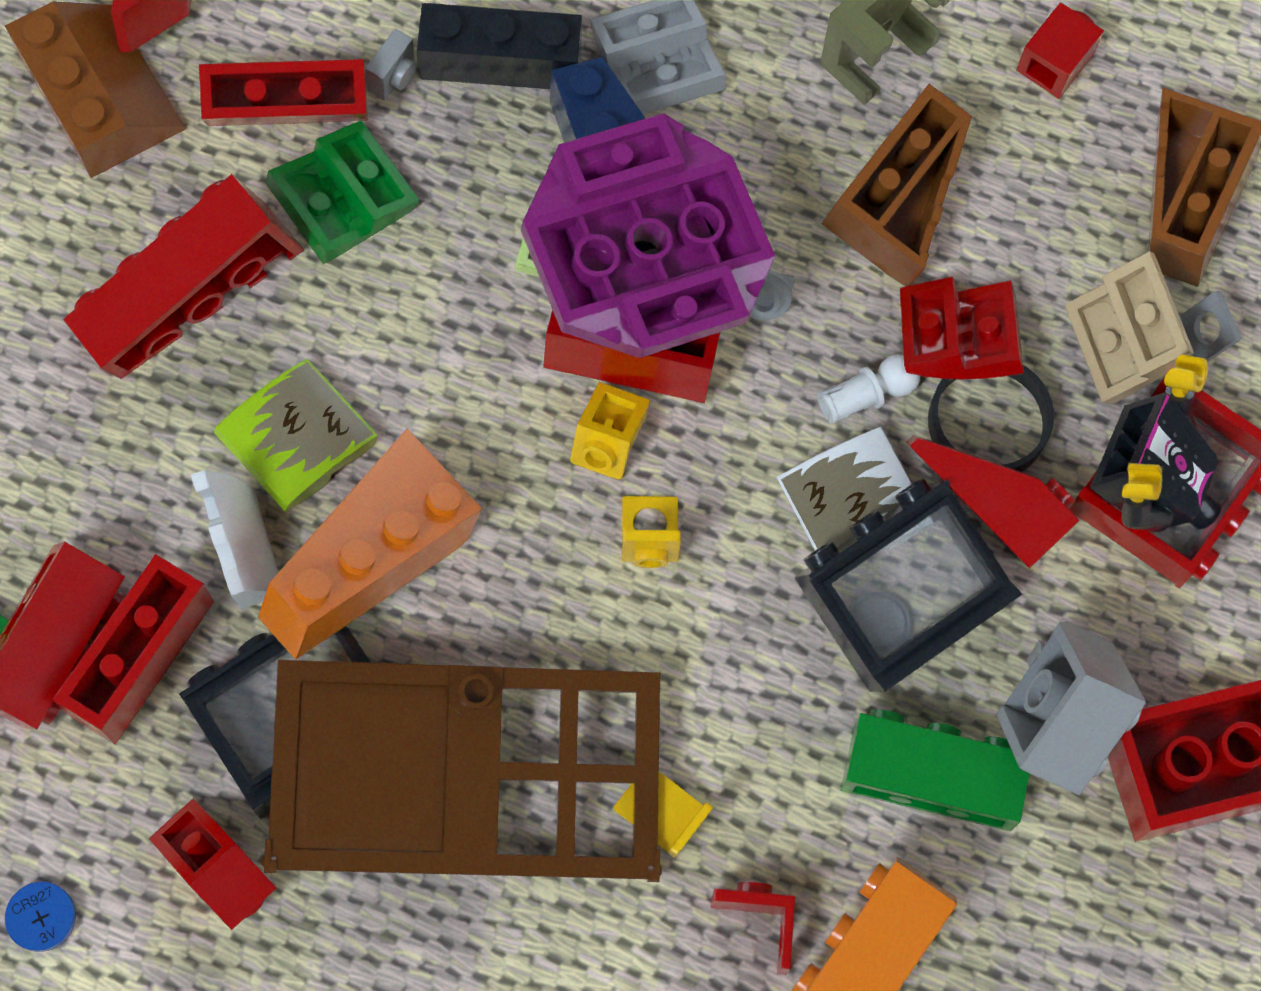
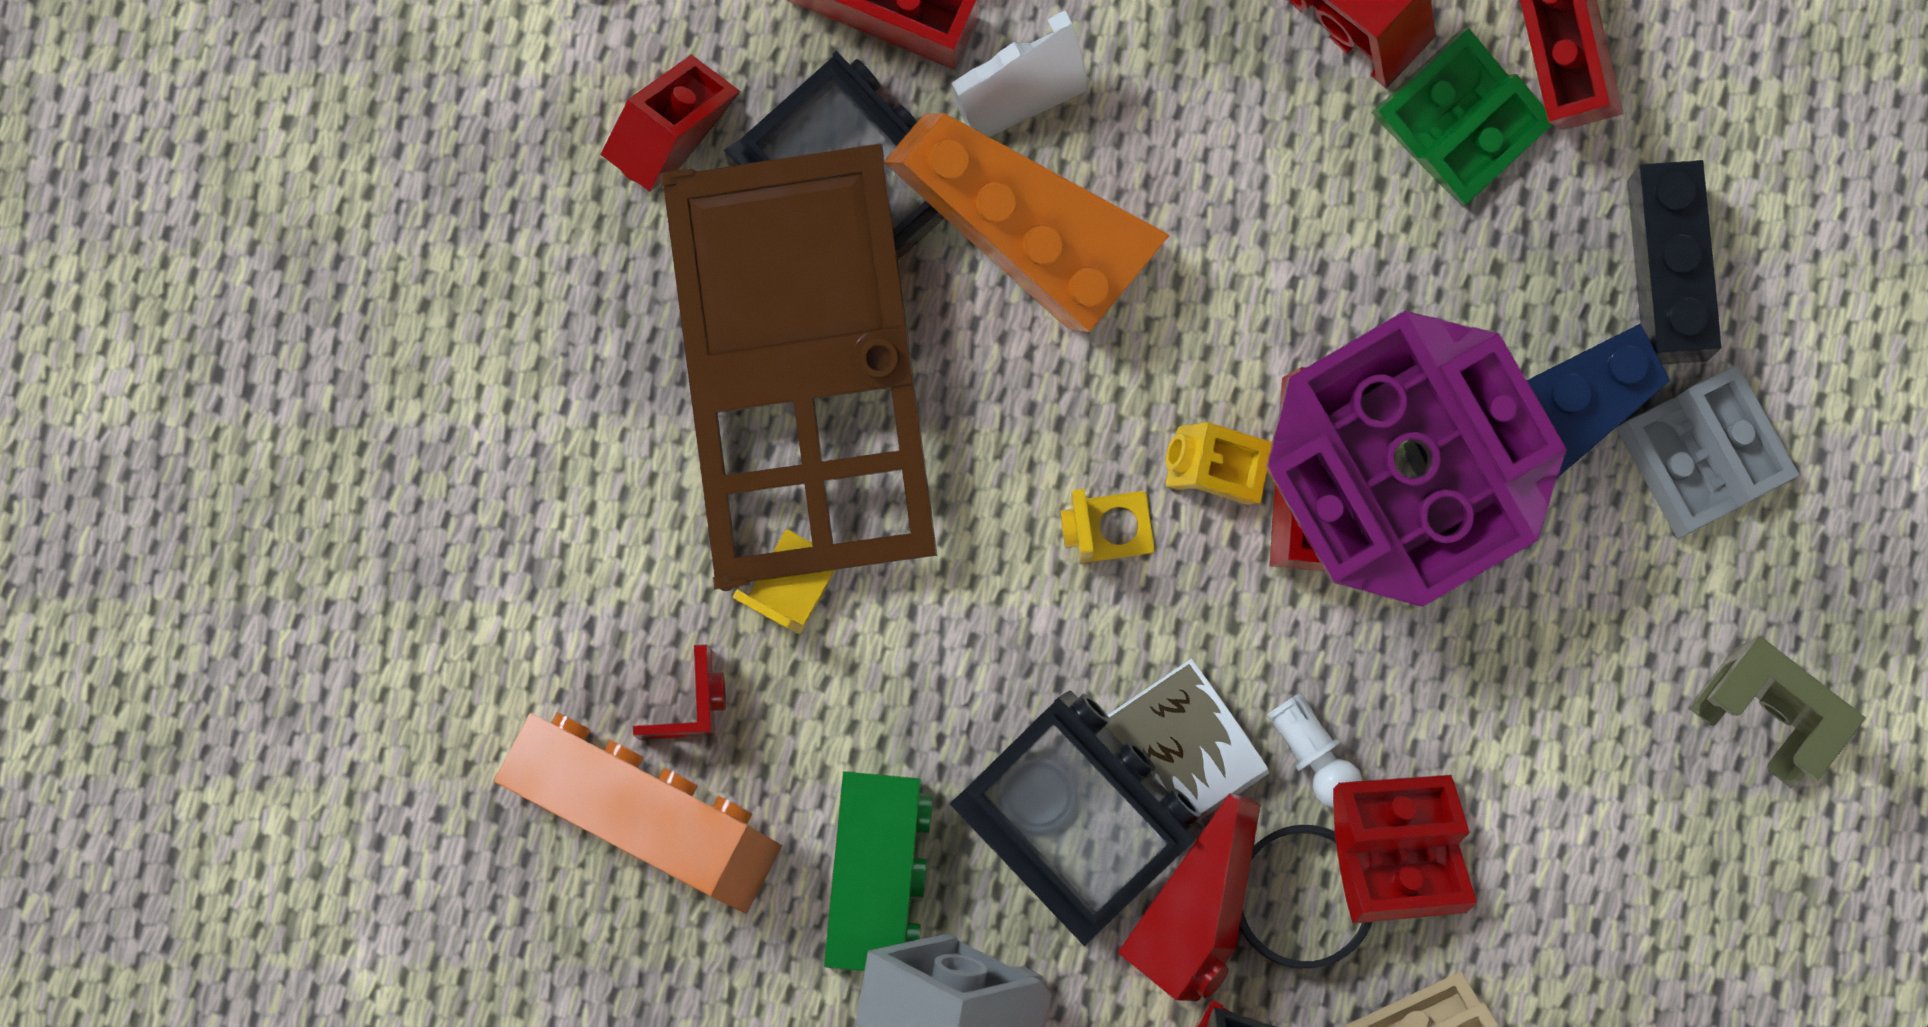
camera: 90 degrees right, 10 degrees up
(295, 434) = (1157, 119): slope -> none
(391, 65) = (1627, 142): light grey plate -> none
(774, 297) = (1416, 625): light grey plate -> none
(901, 189) = (1572, 759): dark orange wedge -> none
(1060, 49) = (1798, 936): red brick -> none

